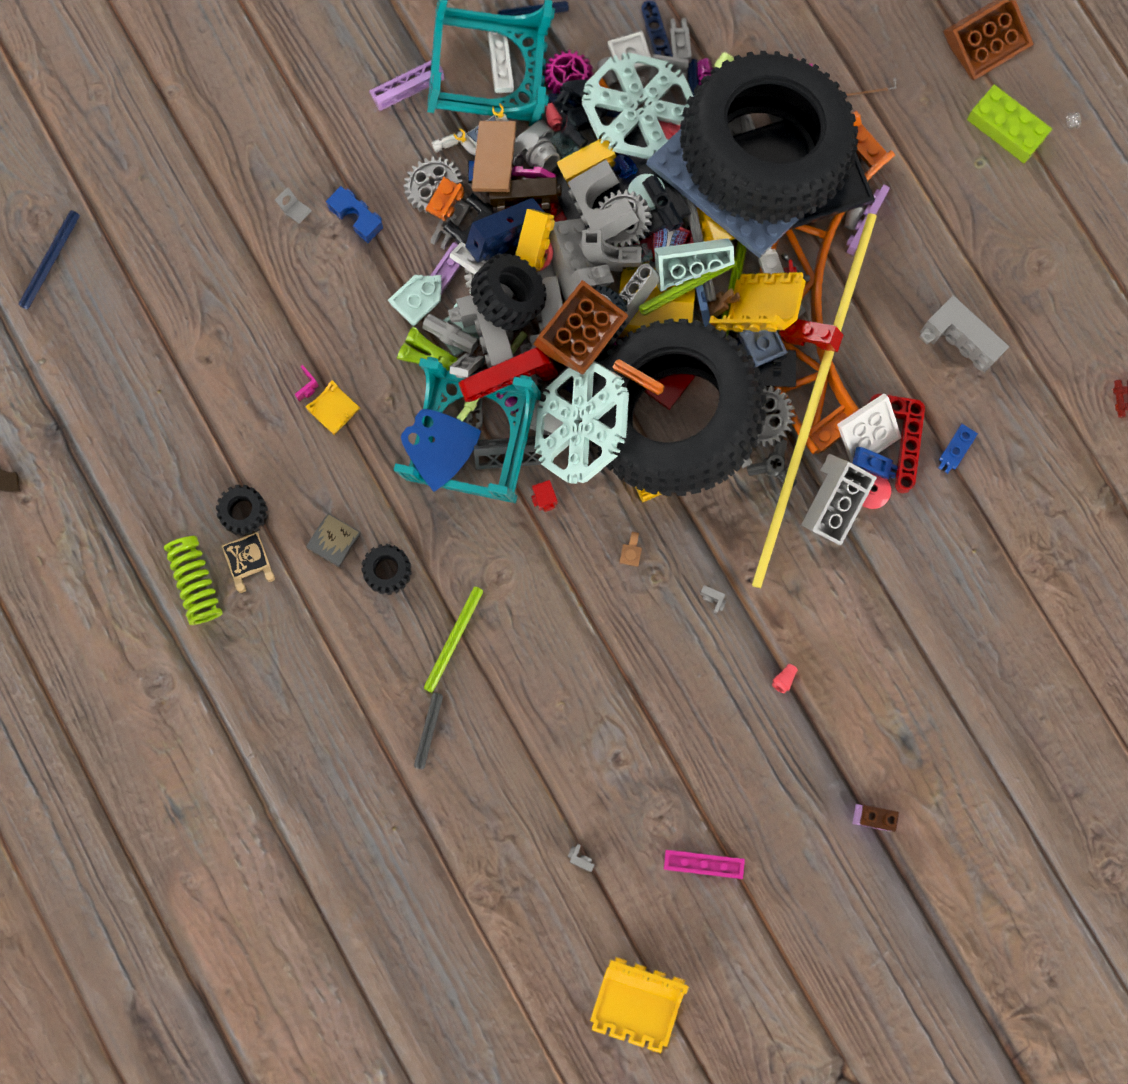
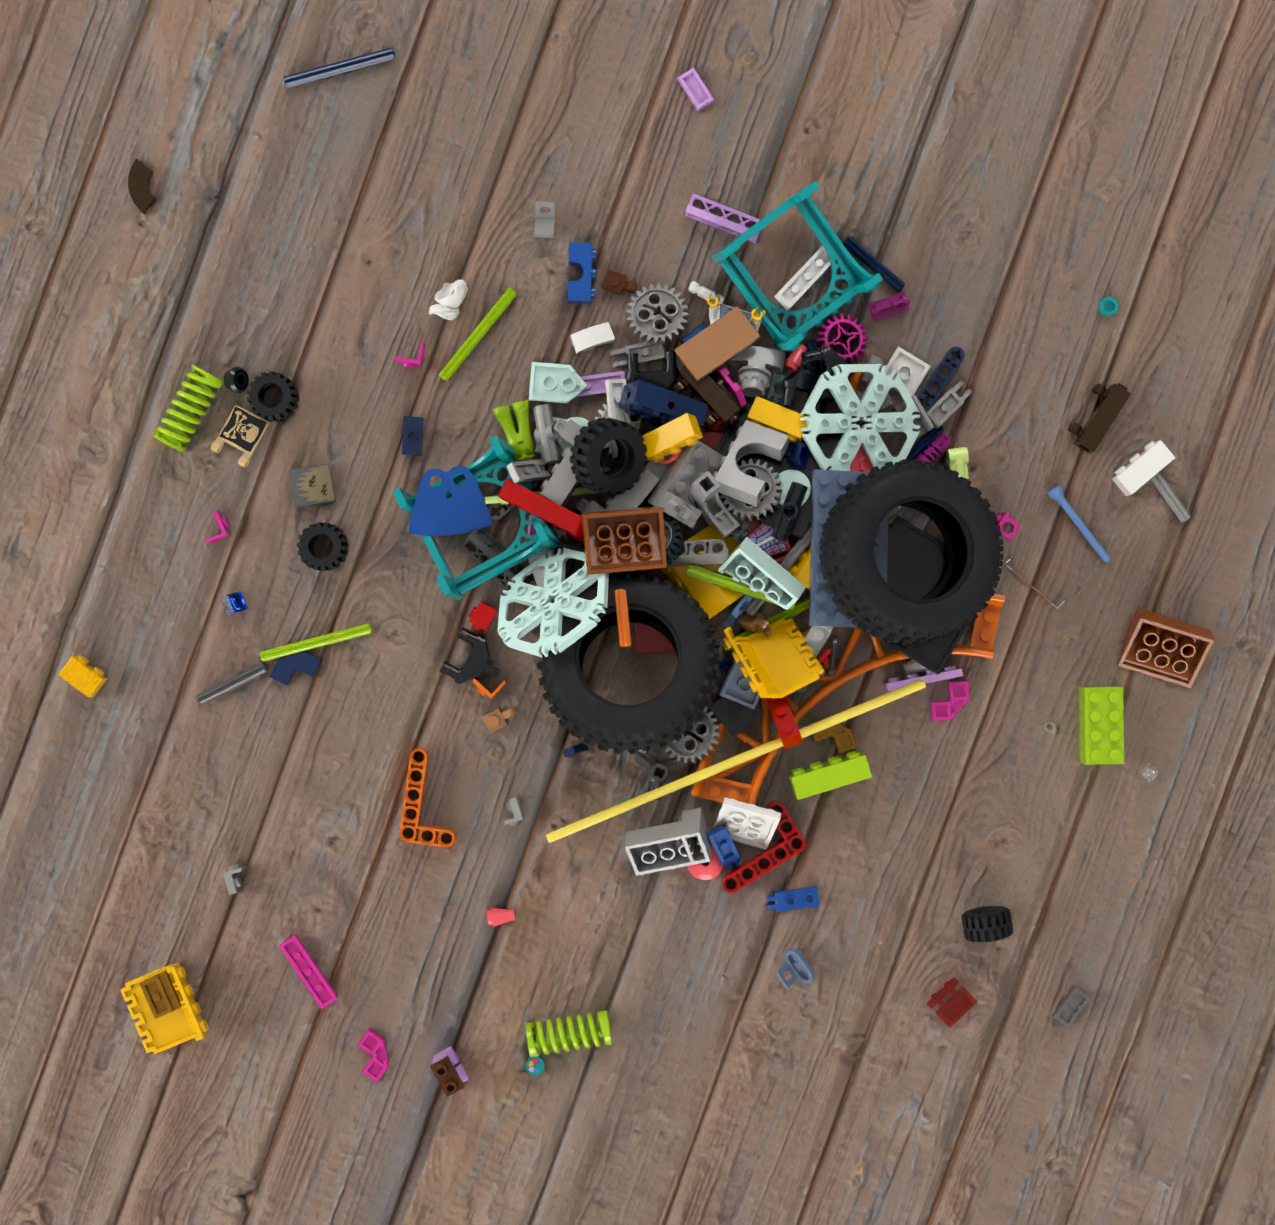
camera: 50 degrees right, 10 degrees up
(204, 527) = (236, 379): none -> black cone
(288, 321) = (449, 300): none -> white hair
(297, 29) = (695, 89): none -> lavender tile
(301, 629) = (223, 524): none -> dark pink bracket
(322, 840) = (83, 676): none -> yellow brick
(332, 325) = (477, 334): none -> lime axle
(333, 408) = (412, 394): yellow piece -> none
(363, 434) = (412, 436): none -> dark blue plate
(369, 674) = (234, 603): none -> clear blue tile
(385, 196) = (616, 282): none -> reddish brown plate
(408, 244) = (592, 337): none -> white slope
(445, 198) = (649, 335): orange bracket -> none
(458, 662) = (301, 661): none -> dark blue tile
(573, 24) = (889, 306): none -> magenta hinge
(575, 530) = (476, 664): none -> black connector
(601, 542) = (483, 690): none -> orange bracket
(624, 997) = (161, 995): none -> pearl gold plate
(645, 667) = (416, 804): none -> orange beam
(704, 513) = (575, 750): none -> dark blue tile
(812, 20) = (1057, 494): none -> medium blue piece
(822, 872) = (376, 1046): none -> dark pink tile
(862, 313) = (842, 736): none -> pearl gold tile
(883, 341) = (829, 775): none -> lime brick
(895, 725) = (571, 1037): none -> lime piece
(903, 209) = (957, 699): none -> dark pink tile
(925, 751) = (535, 1065): none -> teal tile
(966, 333) = (892, 834): light grey hinge -> none
(1012, 487) = (797, 966): none -> sand blue bracket
(1093, 319) = (987, 924): none -> black tyre

